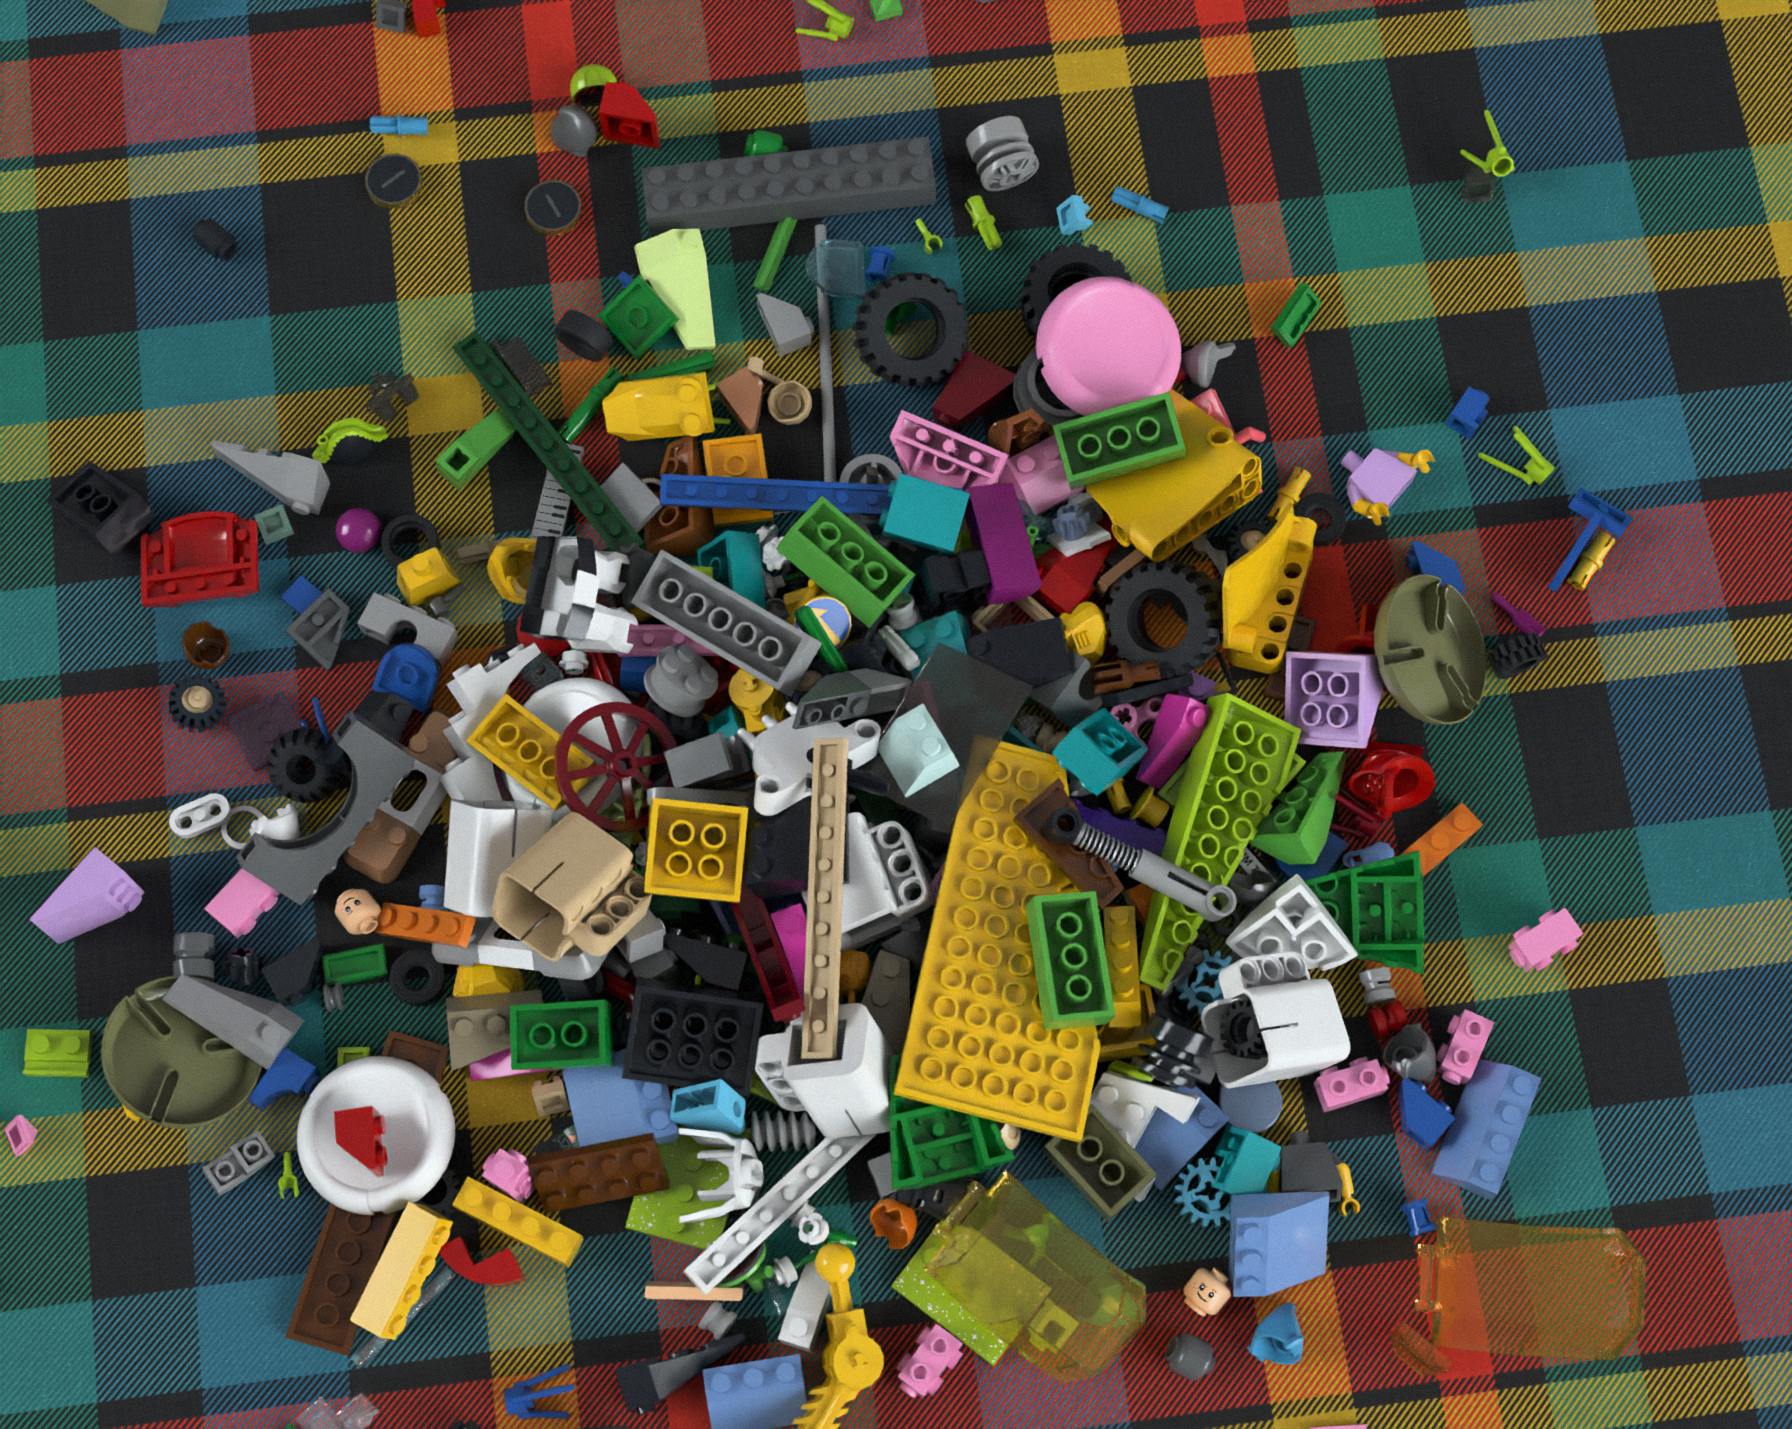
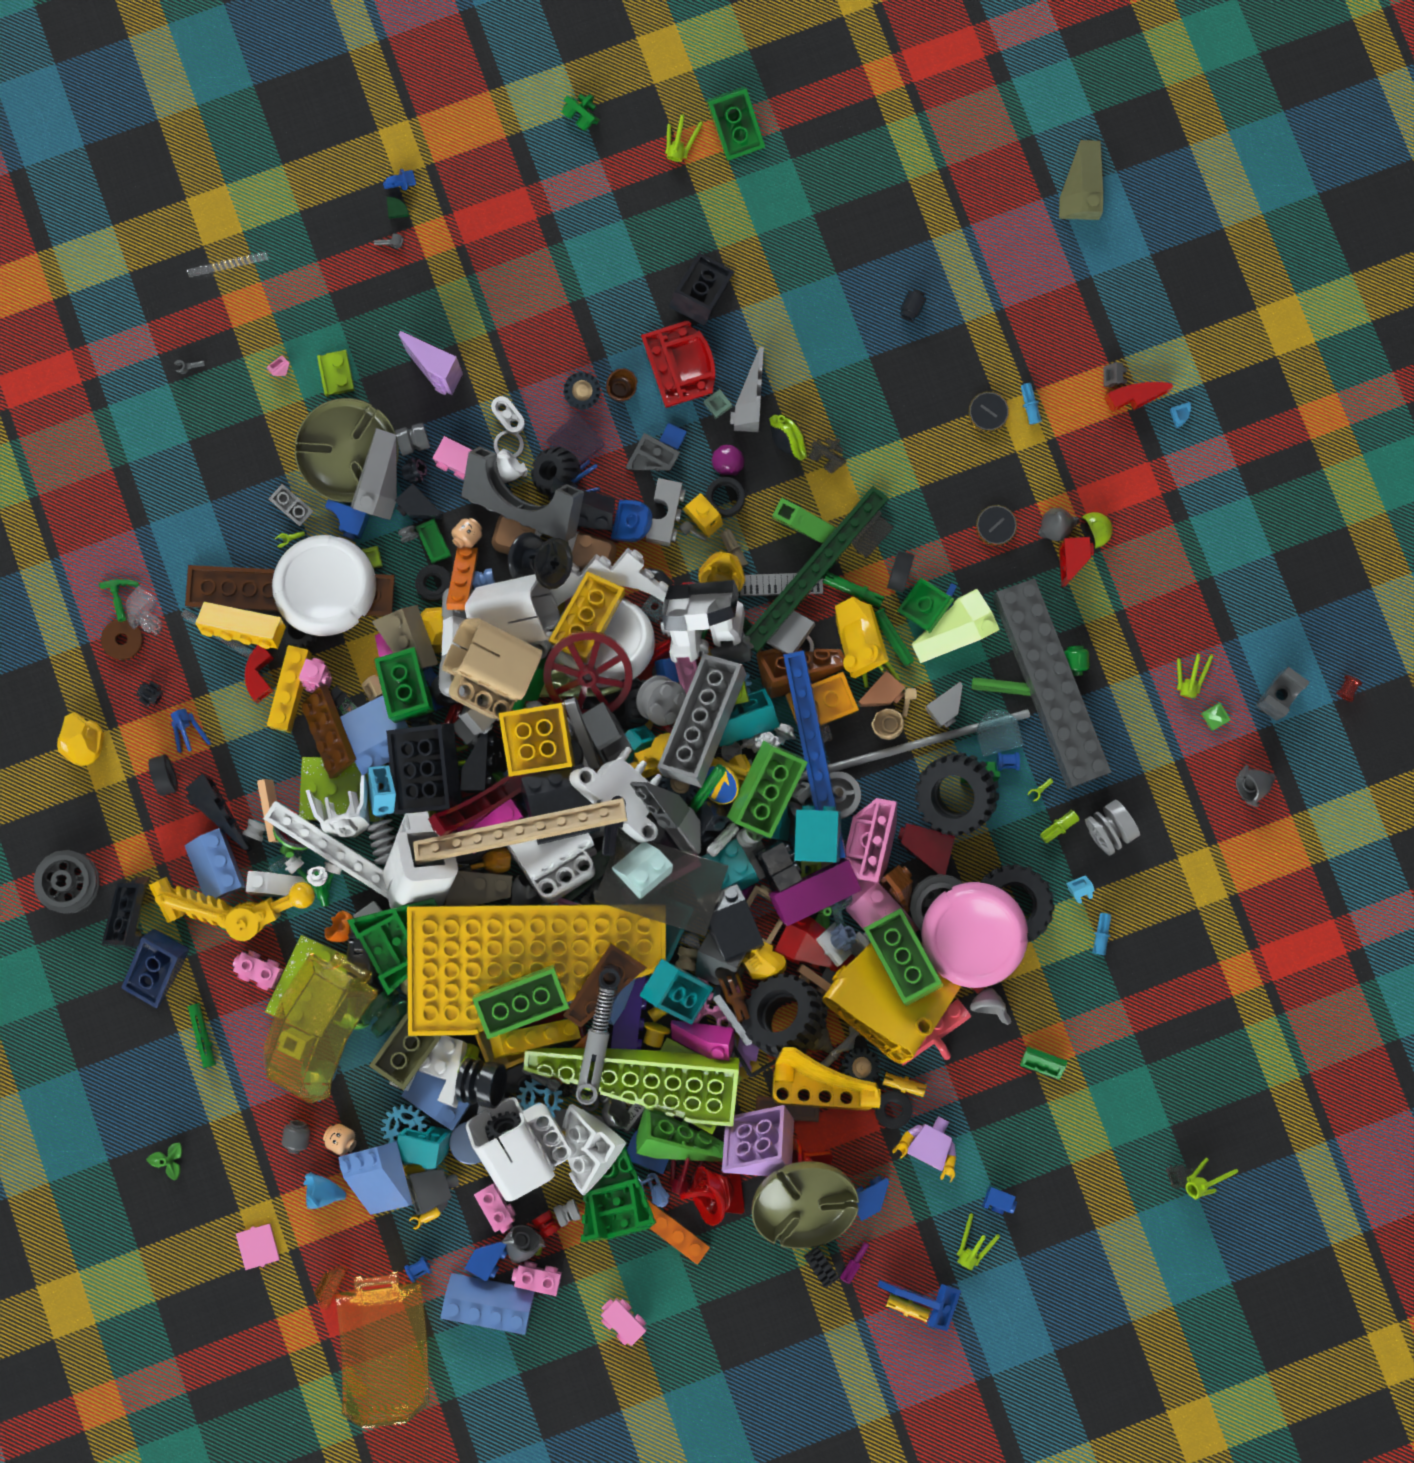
camera: 80 degrees right, 10 degrees up
(359, 1134) = (312, 577): red slope -> none
(425, 816) = (548, 560): none -> black piece
(1041, 1174) = (387, 1013): none -> clear green wheel

